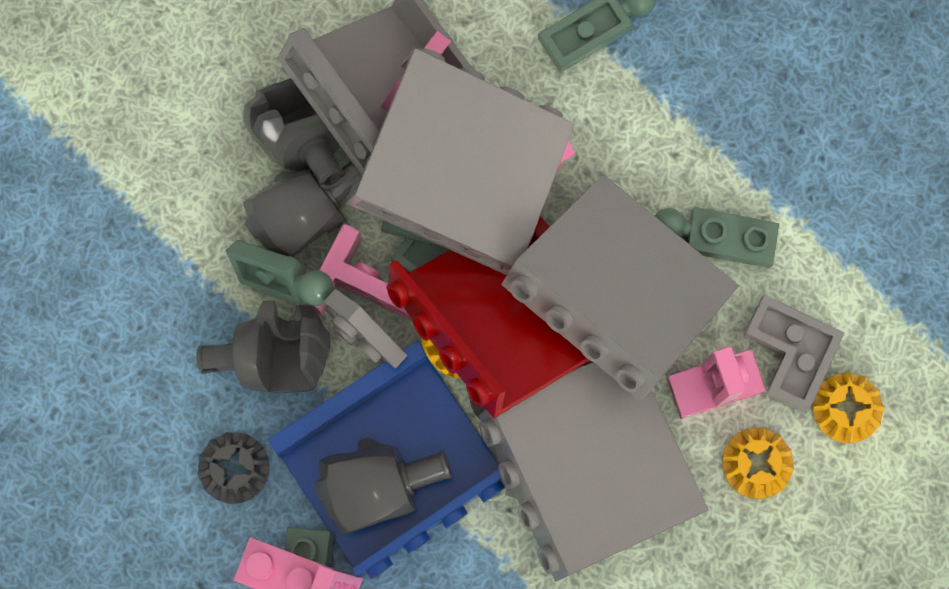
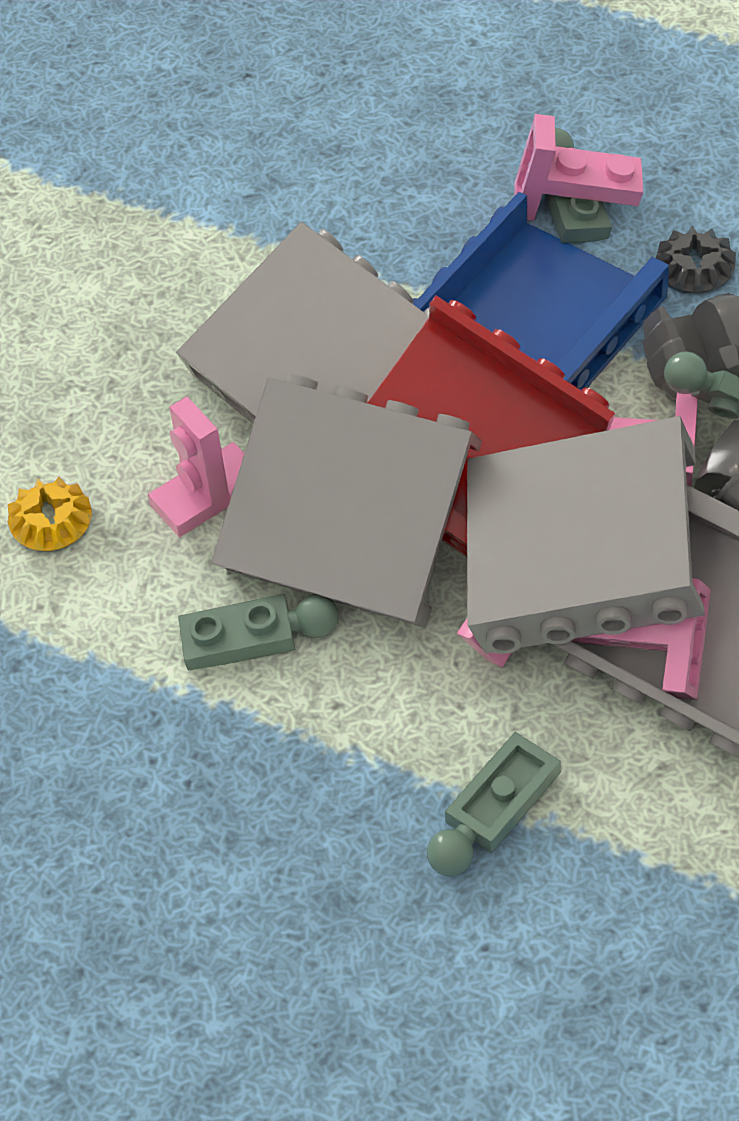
camera: 165 degrees right, 25 degrees down
(355, 324) = (615, 368): light grey plate -> none
(374, 484) = (535, 265): dark grey piece -> none
(737, 465) = (144, 448): yellow gear -> none
(805, 347) = (118, 549): light grey plate -> none

